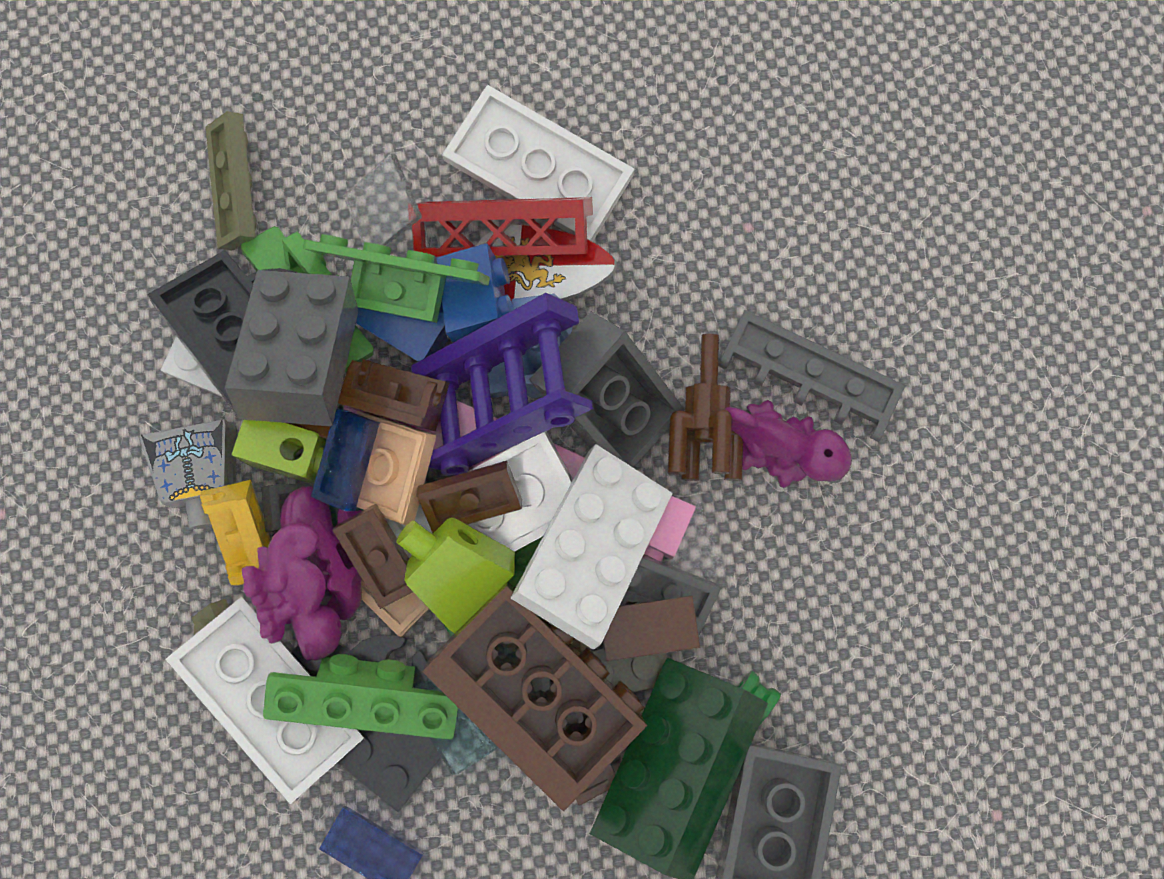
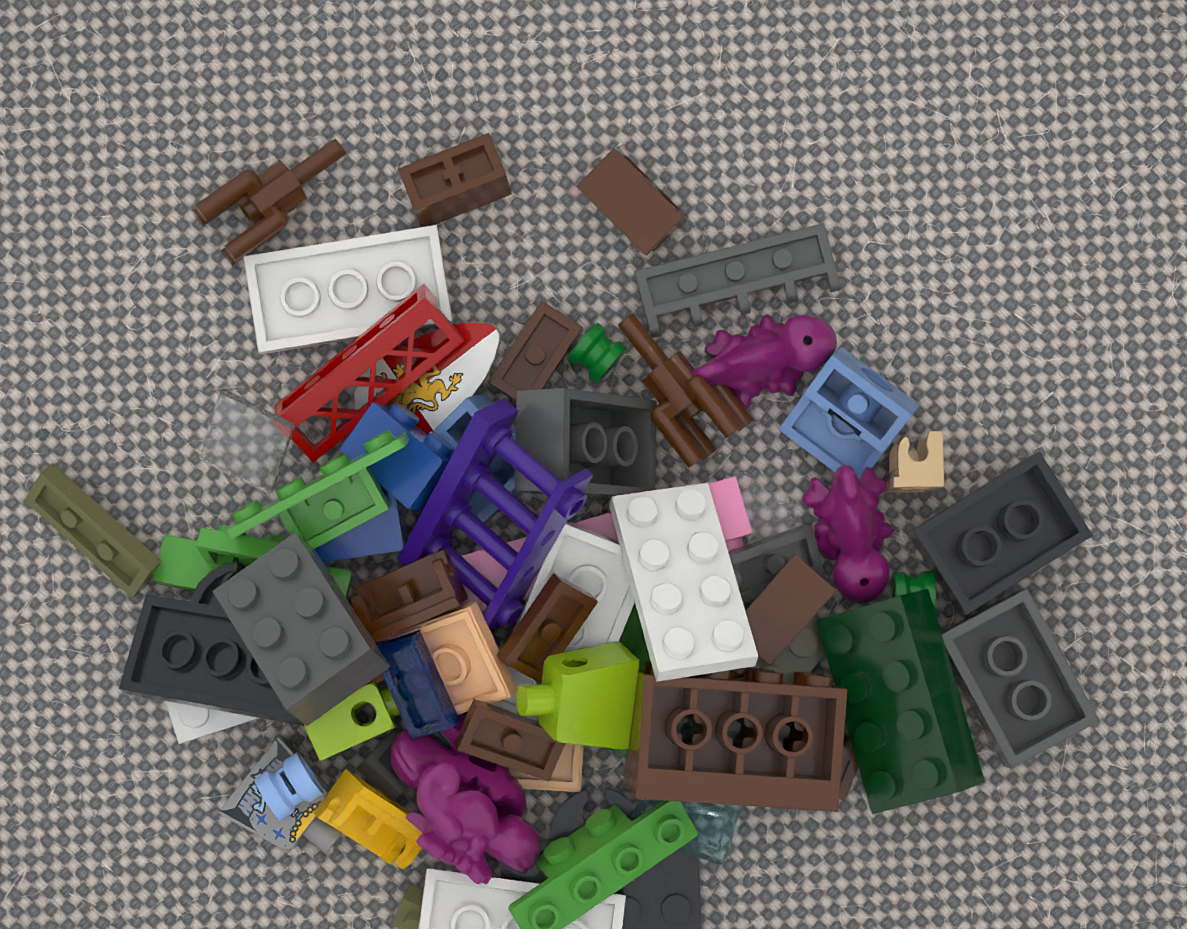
camera: 40 degrees left, 5 degrees up
(197, 456) = (279, 792): none -> light blue wheel
(532, 60) = (265, 199): none -> reddish brown plant
(634, 307) = (536, 352): none -> reddish brown plate
(670, 344) = (597, 353): none -> green wheel
(672, 150) = (455, 181): none -> reddish brown hinge
(750, 616) = (855, 527): none -> magenta animal
(782, 262) = (632, 201): none -> reddish brown hinge
(830, 612) = (920, 468): none -> tan hinge
(831, 530) = (860, 399): none -> medium blue brick
(853, 708) = (999, 534): none -> black brick

